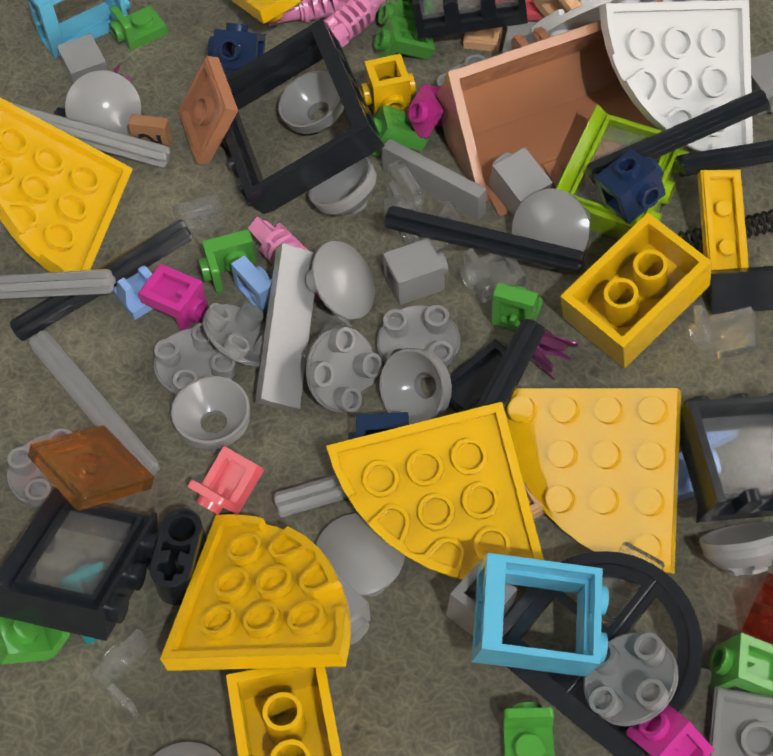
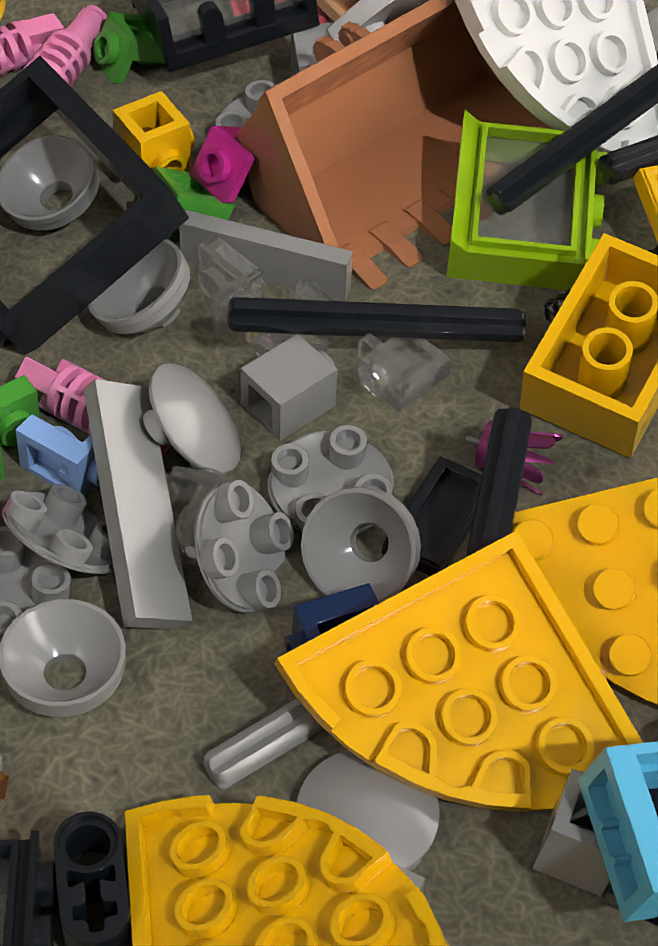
camera: 25 degrees left, 5 degrees down
(227, 482) = (126, 756): coral bracket -> none
(401, 37) = (140, 74): bright green bracket -> none
(484, 39) = (255, 61): light nougat tile -> none
(513, 305) = (457, 404): bright green bracket -> none
(516, 177) = (391, 235): light grey brick -> none
(553, 218) = (461, 270): light grey dish -> none
(630, 185) = (561, 204): dark blue brick -> none

